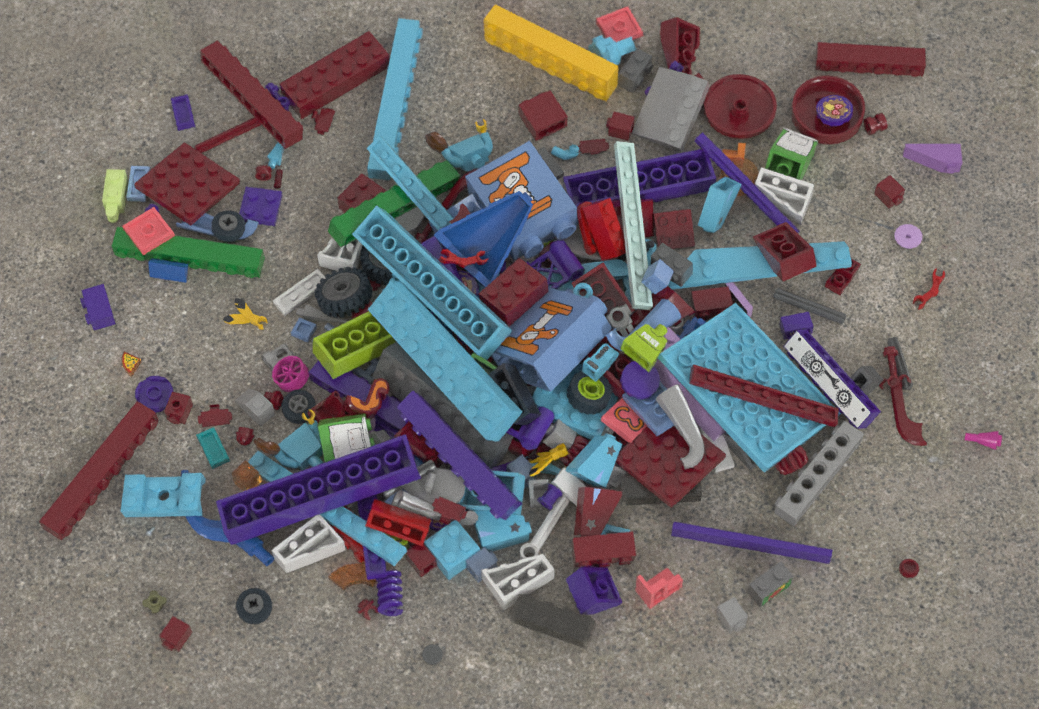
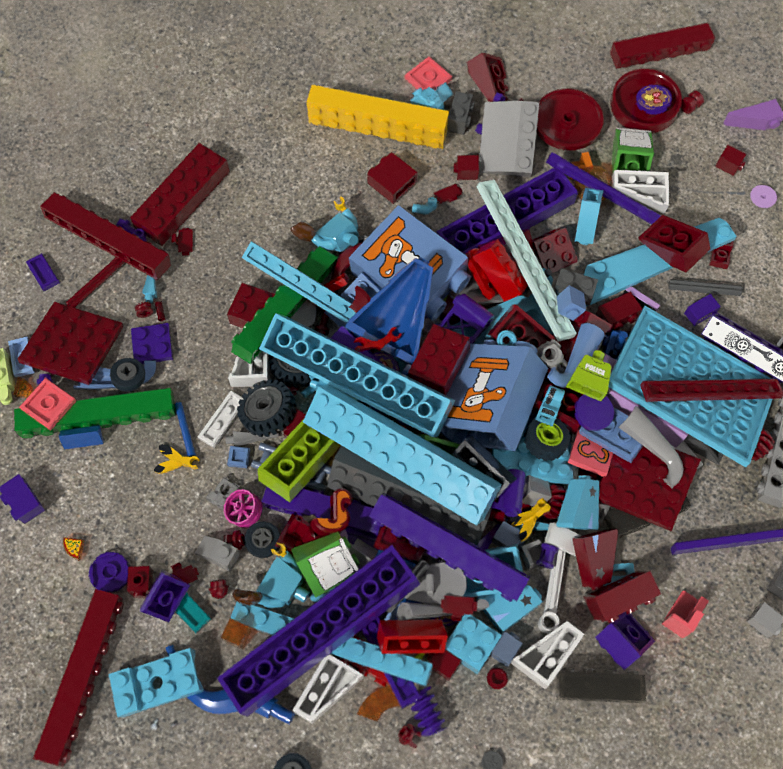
camera: 20 degrees left, 5 degrees up
(130, 212) = (23, 388): none -> clear orange tile
(194, 424) = (164, 596): none -> dark purple slope
(263, 290) = (184, 429): none -> blue piece
(396, 90) = (245, 194): medium azure brick -> none
(450, 198) = (338, 282): none -> red tile
(464, 587) = (497, 678): none -> dark red plate

